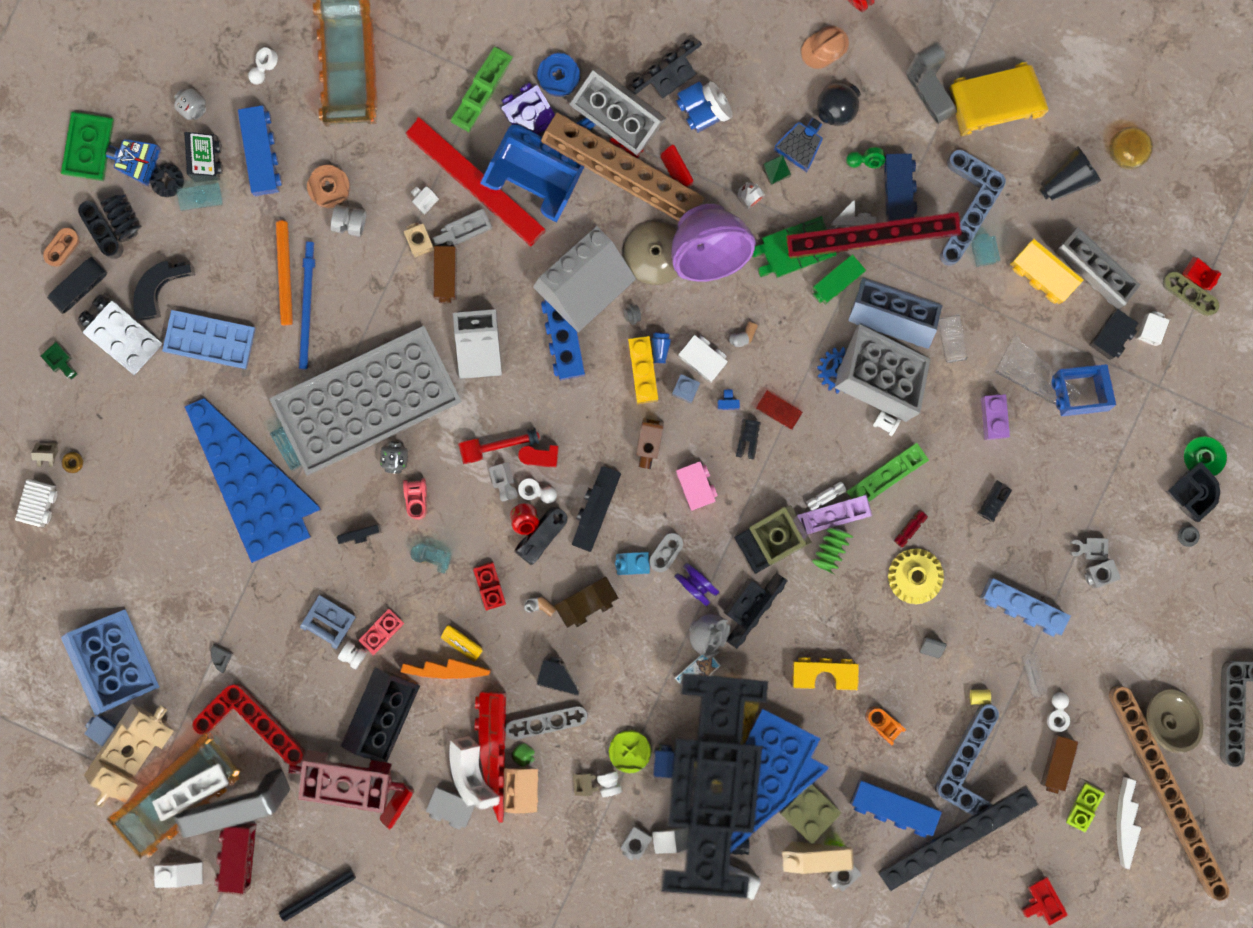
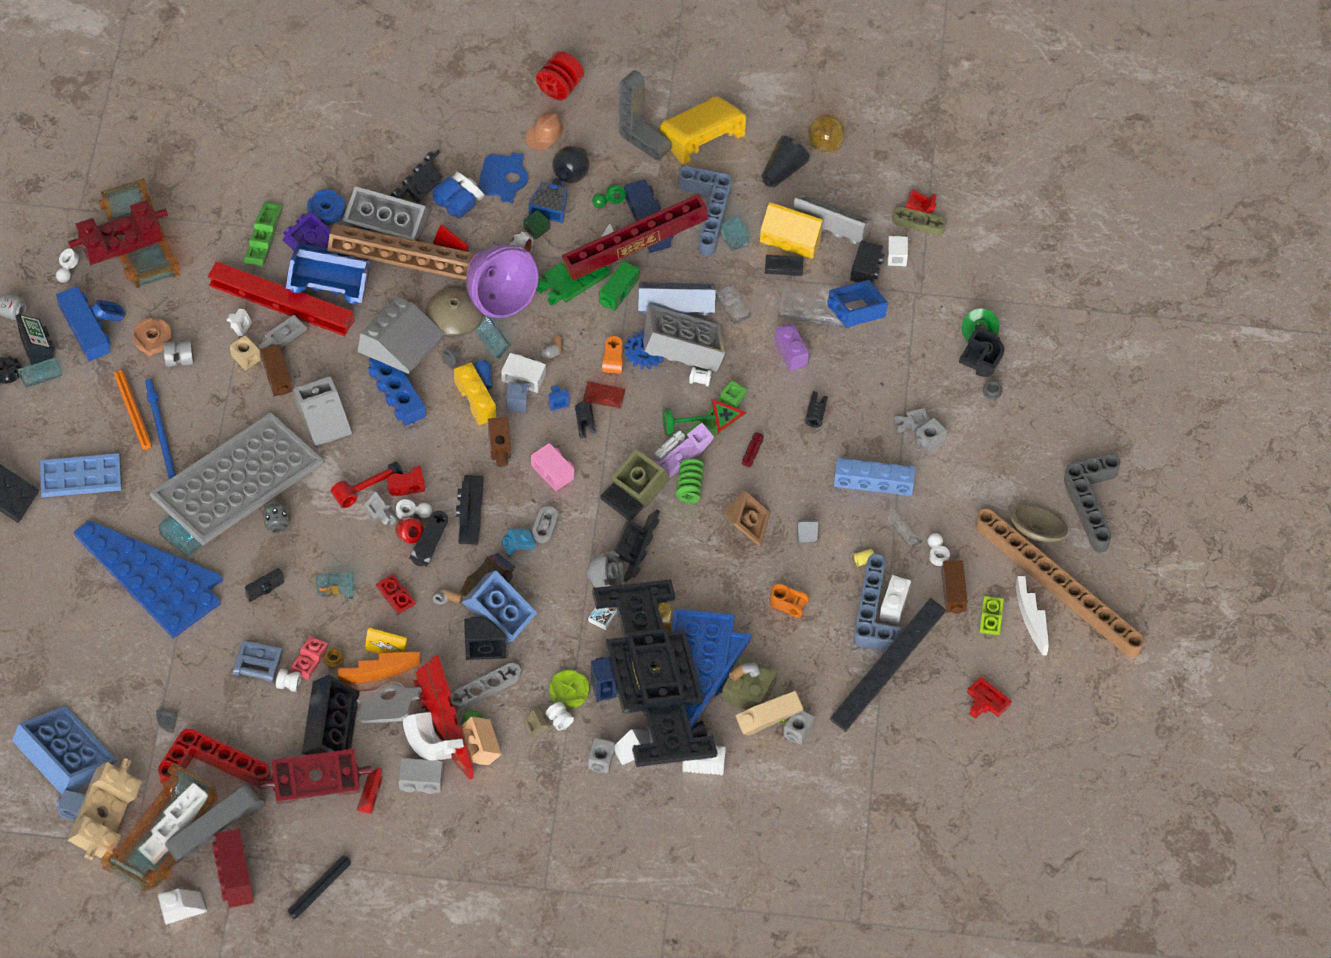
camera: 20 degrees left, 30 degrees down
(150, 285) = (19, 441): black arch -> none
(284, 144) = (108, 310): none -> blue plate
(300, 53) = (139, 231): none -> dark red brick
(398, 641) = (333, 653): none -> pearl gold plate
(415, 496) = (305, 542): coral piece -> none
(440, 728) = (377, 710): none -> light grey piece
(585, 648) = (500, 605): none -> medium blue brick
(684, 304) = (492, 338): none -> clear light blue plate
(696, 584) = (580, 534): dark purple wheel -> none
(750, 88) = (493, 176): none -> blue piece
(801, 372) = (613, 356): none -> orange piece
(809, 806) = (743, 668): none -> arm
(844, 673) = (736, 571): yellow arch -> none
(875, 615) = (748, 516): none -> medium nougat slope
(894, 479) = (723, 415): none -> green piece
(896, 808) = (824, 661): blue brick -> none
(901, 576) = (768, 492): light yellow gear -> none
(993, 761) = (895, 600): none -> white brick
(1024, 307) = (784, 265): none -> black plate

